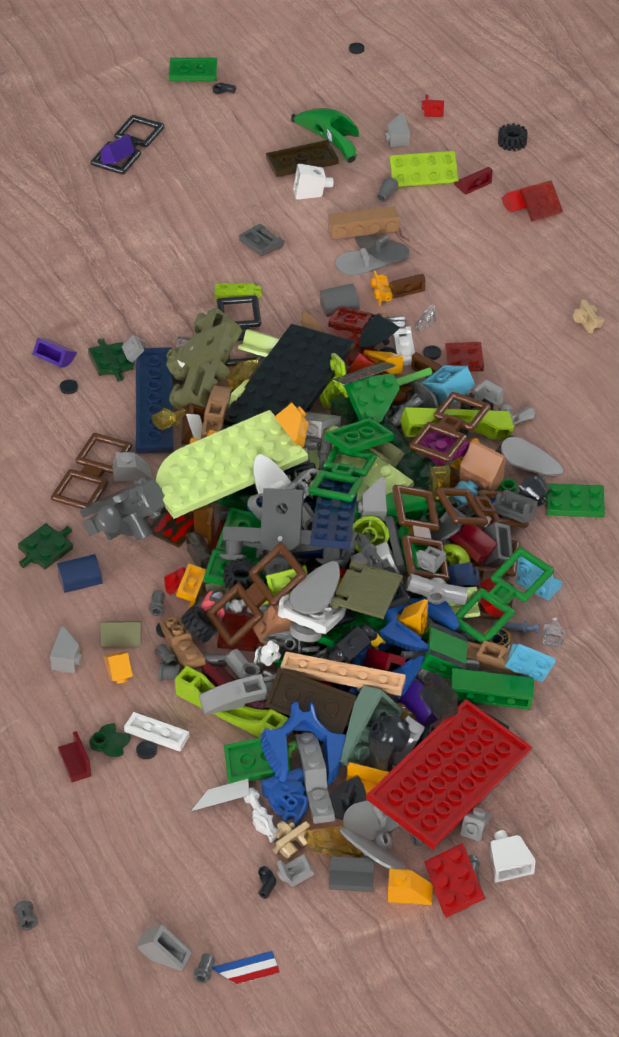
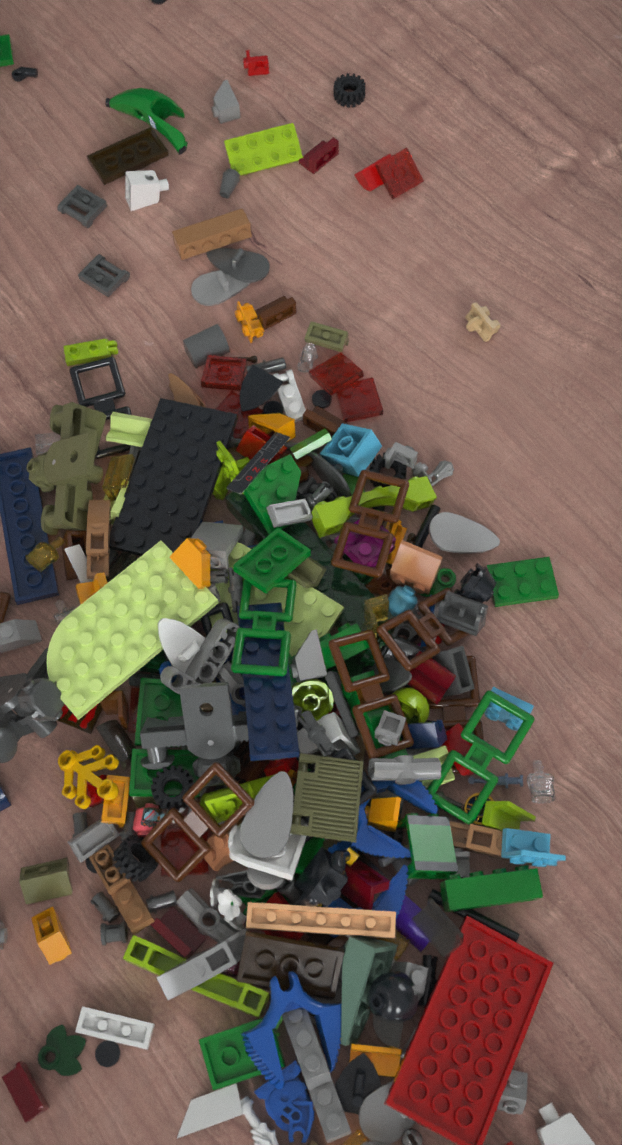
camera: 10 degrees left, 20 degrees up
(159, 558) = (70, 761): none -> yellow plant
(165, 608) = (92, 839): none -> light grey tile
(256, 185) = (85, 201): none -> dark grey plate
(382, 411) = (289, 512): none -> light grey tile
(447, 306) = (326, 336): none -> olive panel
(448, 334) = (336, 373): none -> clear red plate
(516, 634) = (504, 815): none -> lime panel

